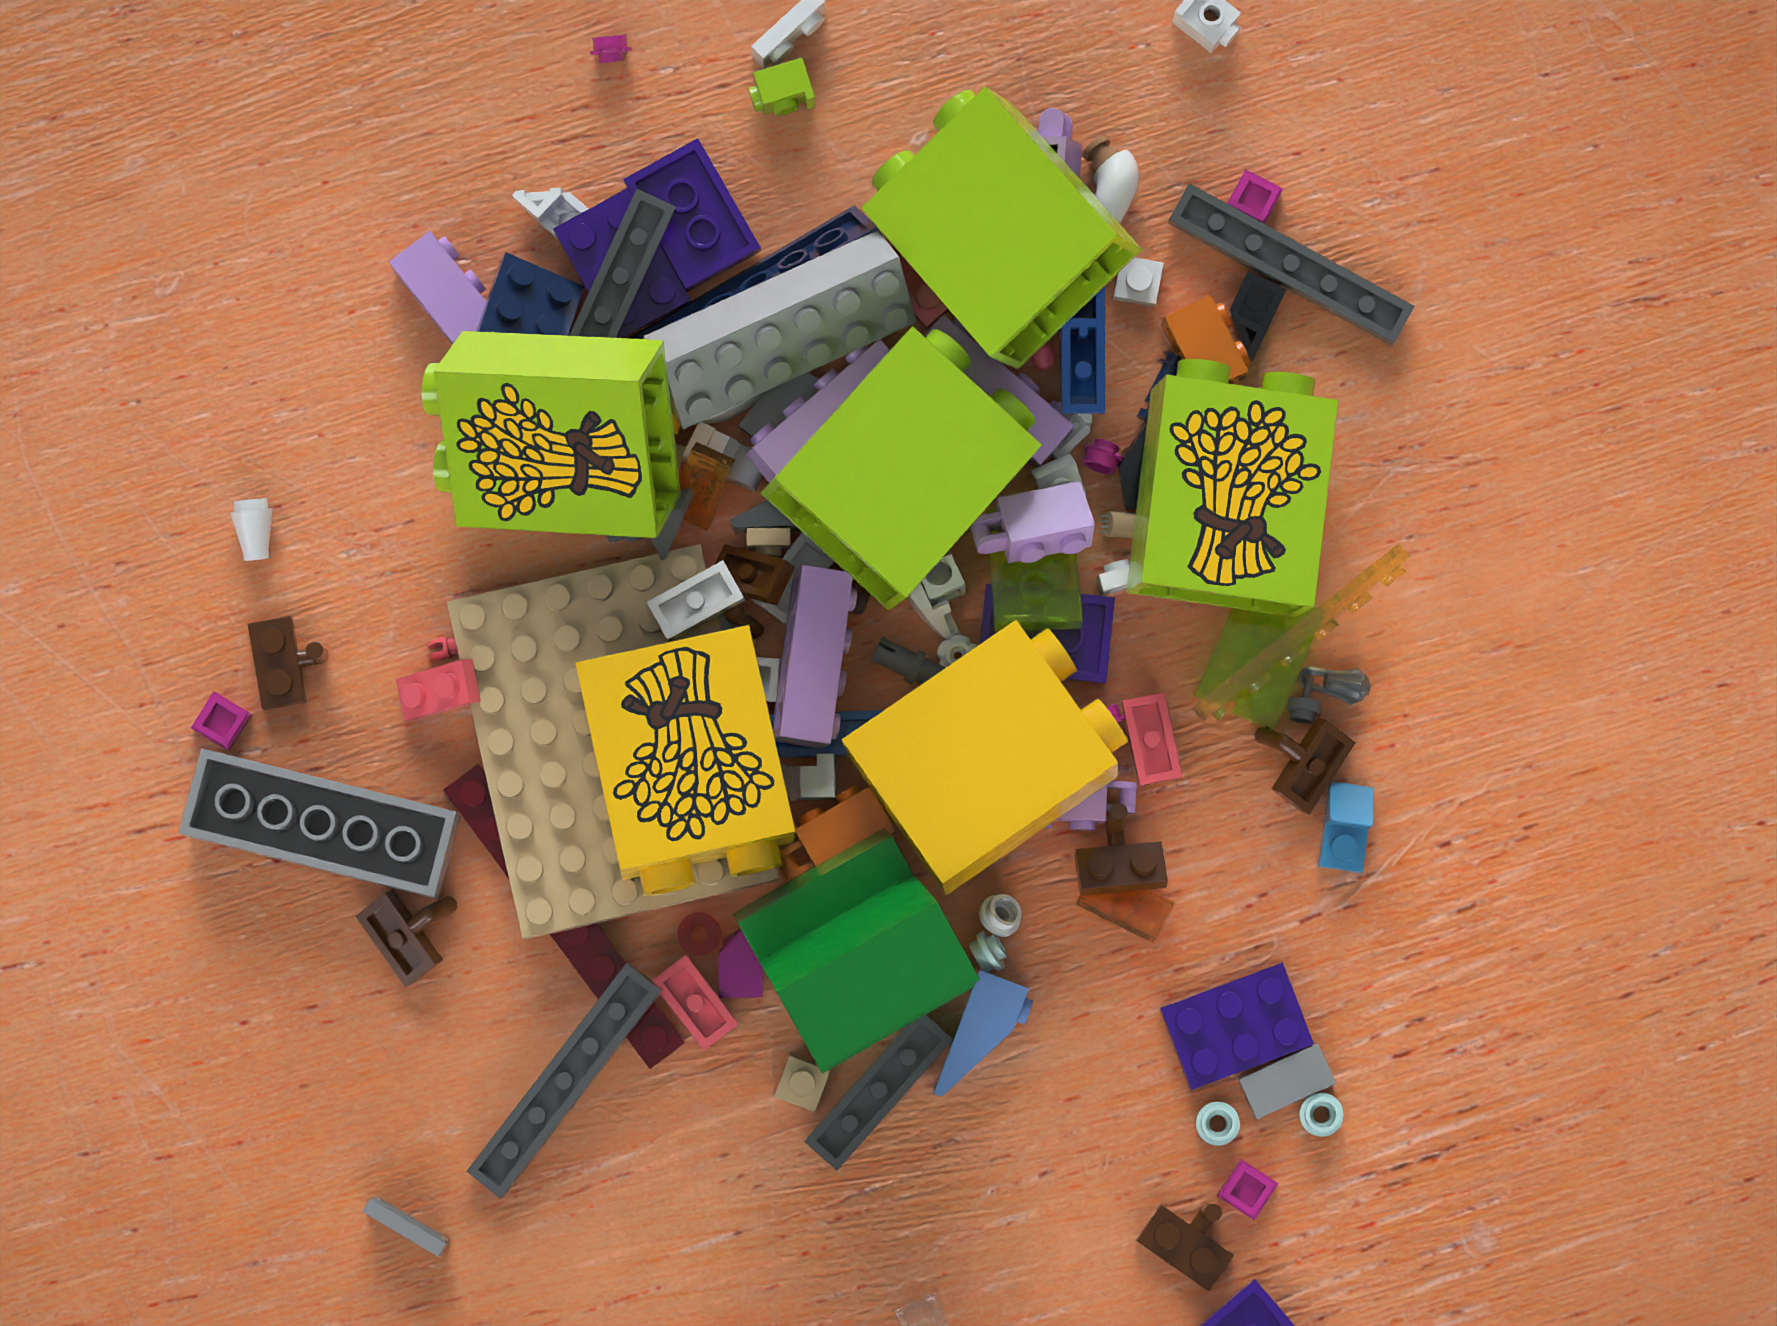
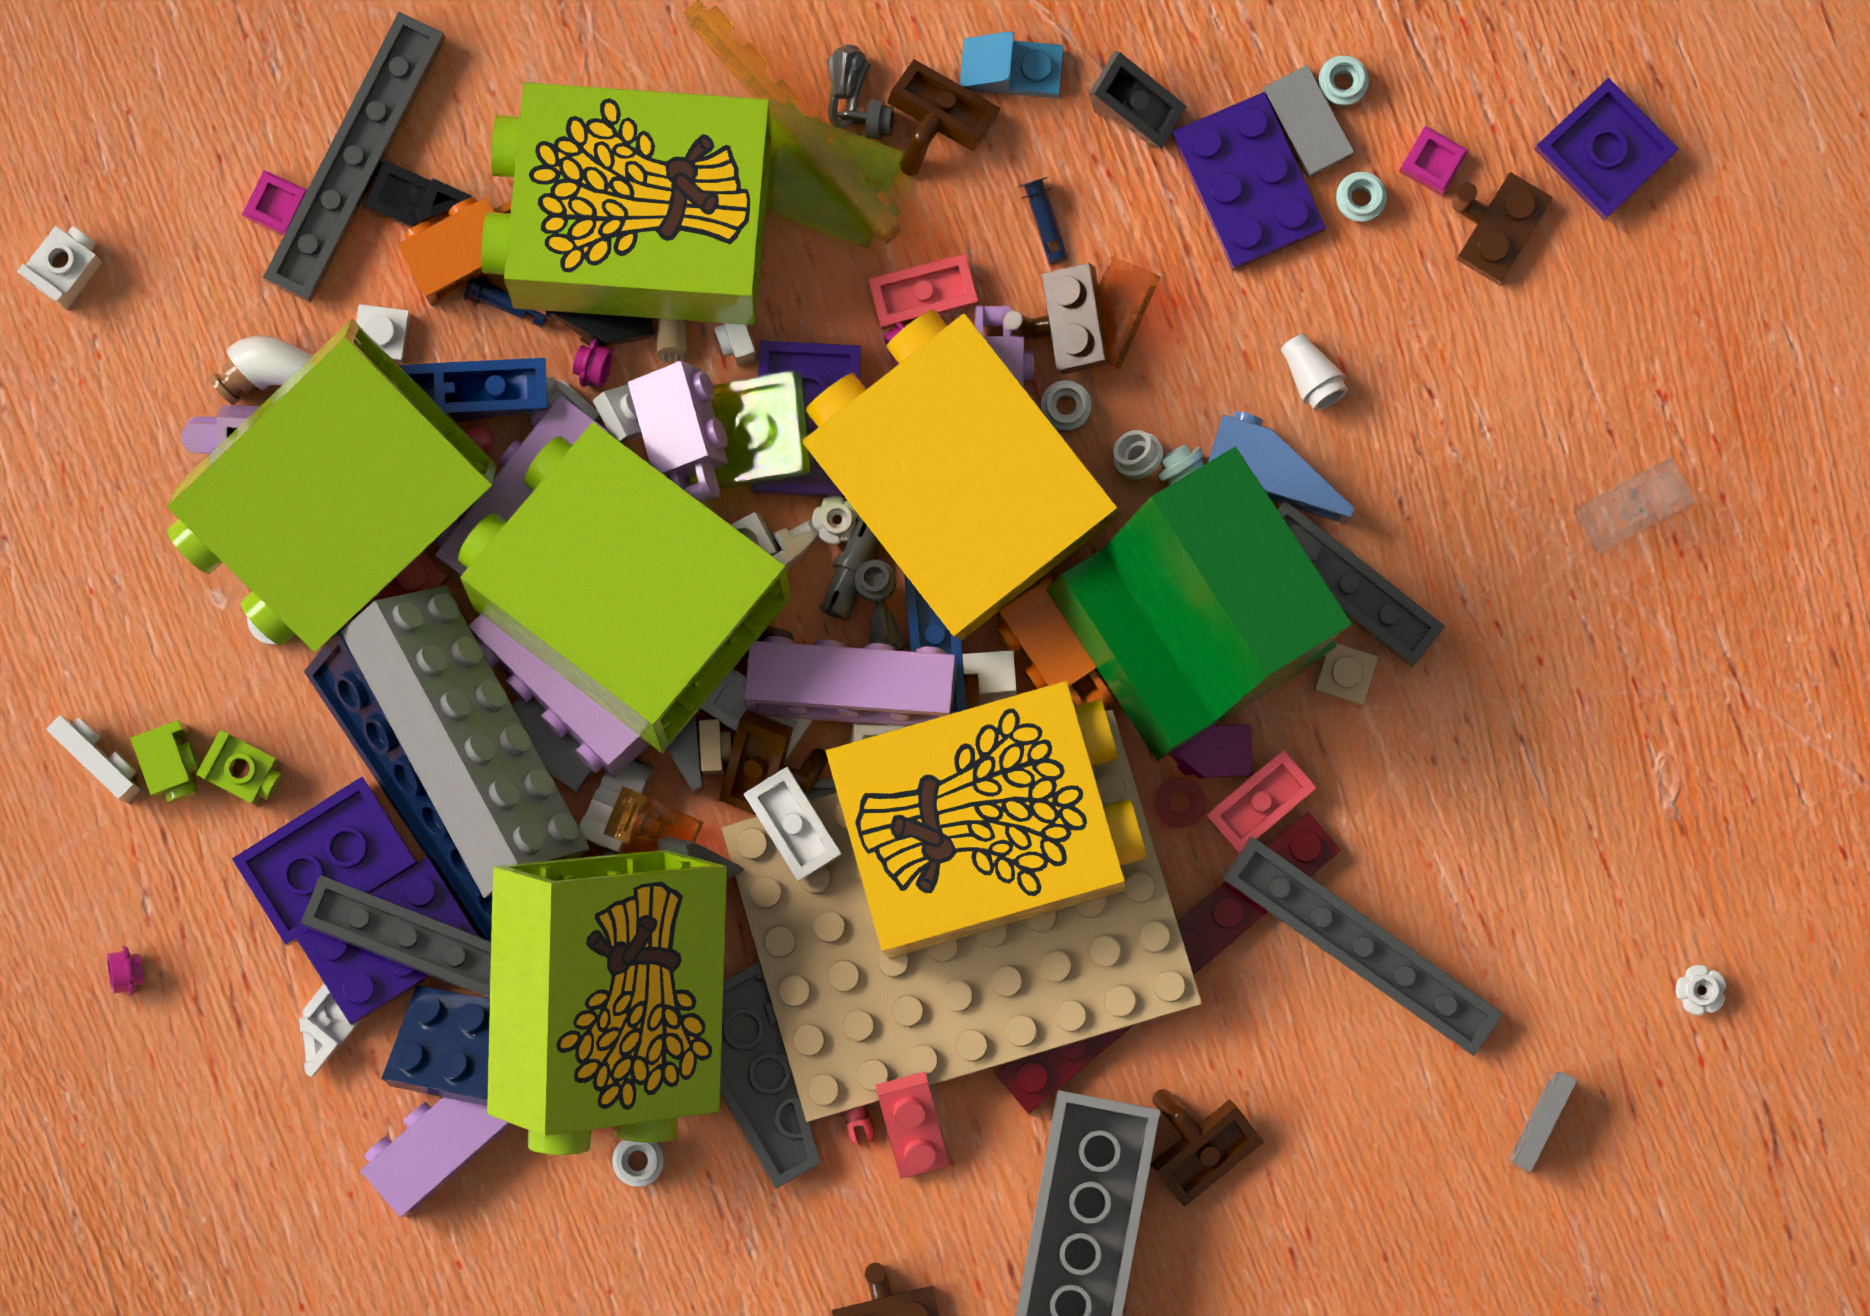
camera: 85 degrees left, 0 degrees up
(412, 459) = (630, 1176): none -> white plate
(485, 564) = (760, 1082): none -> dark grey wing
(773, 166) = (223, 755): none -> lime brick
(896, 684) = (876, 583): none -> dark grey piece
(1047, 842) = (1072, 391): none -> white plate
(1062, 1072) = (1314, 374): none -> white cone
(1212, 847) = (1044, 218): none -> dark blue piece
(1309, 931) = (1135, 100): none -> dark grey slope

